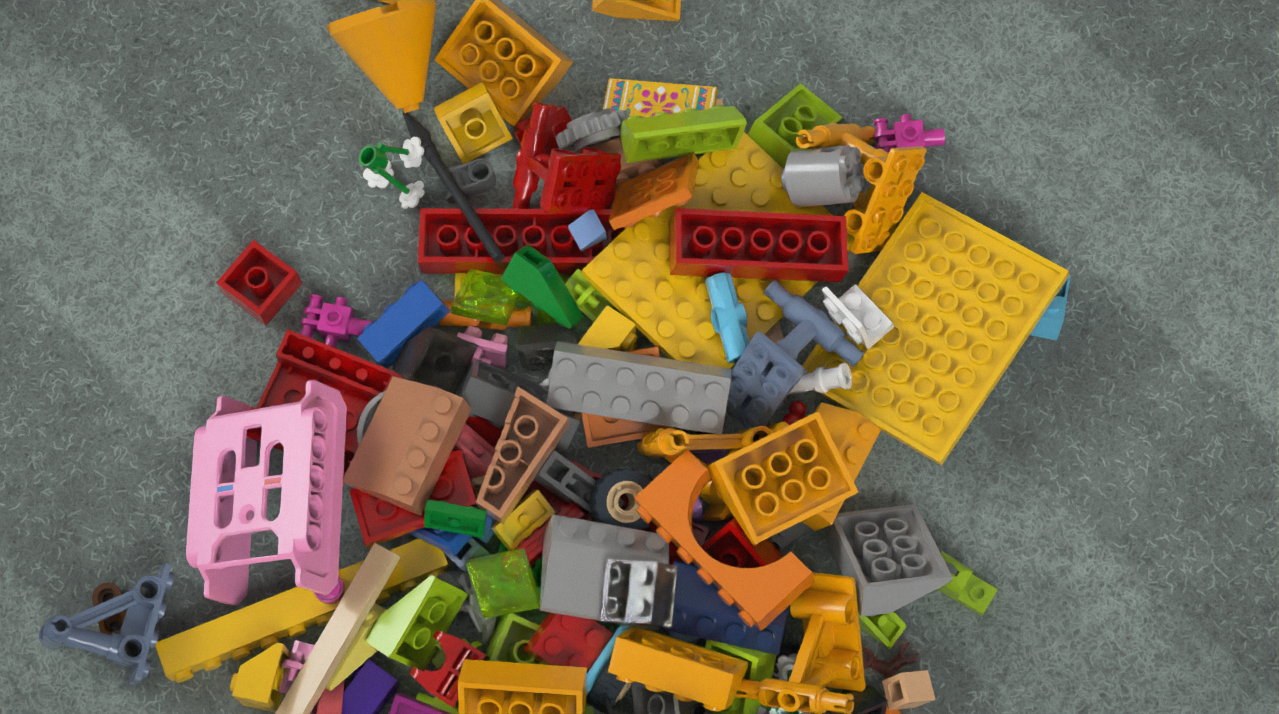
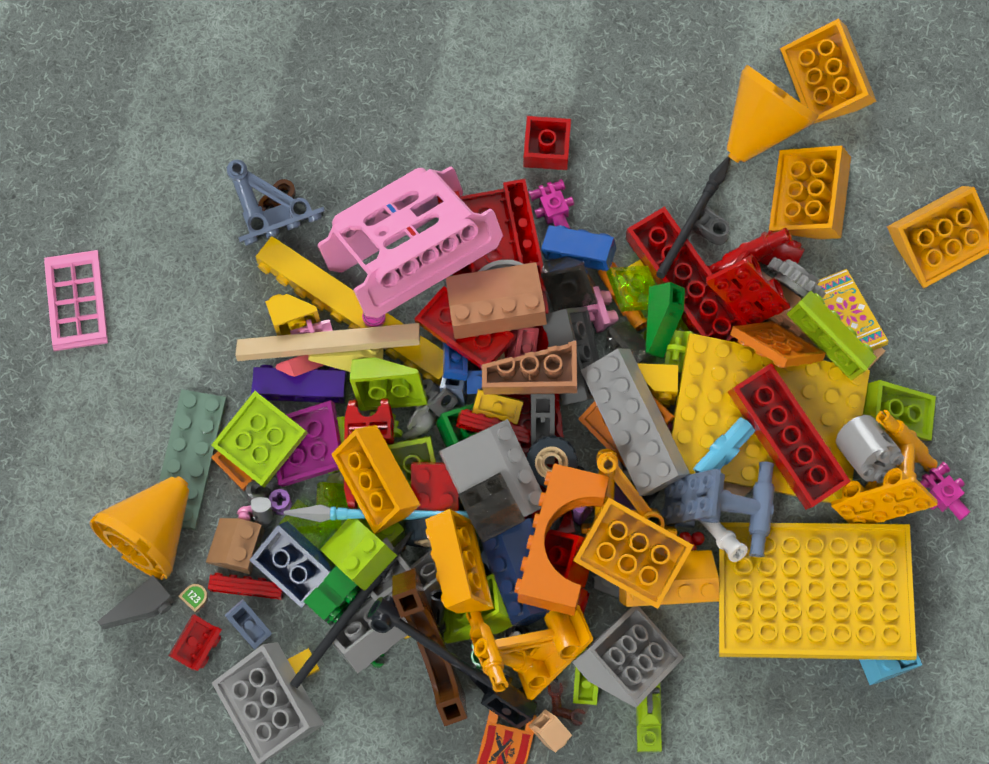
camera: 55 degrees right, 0 degrees up
(379, 172) = (676, 166): plant -> none
(455, 518) = (465, 361): green plate -> none
(472, 123) = (750, 202): yellow slope -> none
(503, 583) = (444, 419): clear neon green plate -> none
(587, 230) = (722, 320): medium blue slope -> none
(858, 314) = (787, 535): white bracket -> none

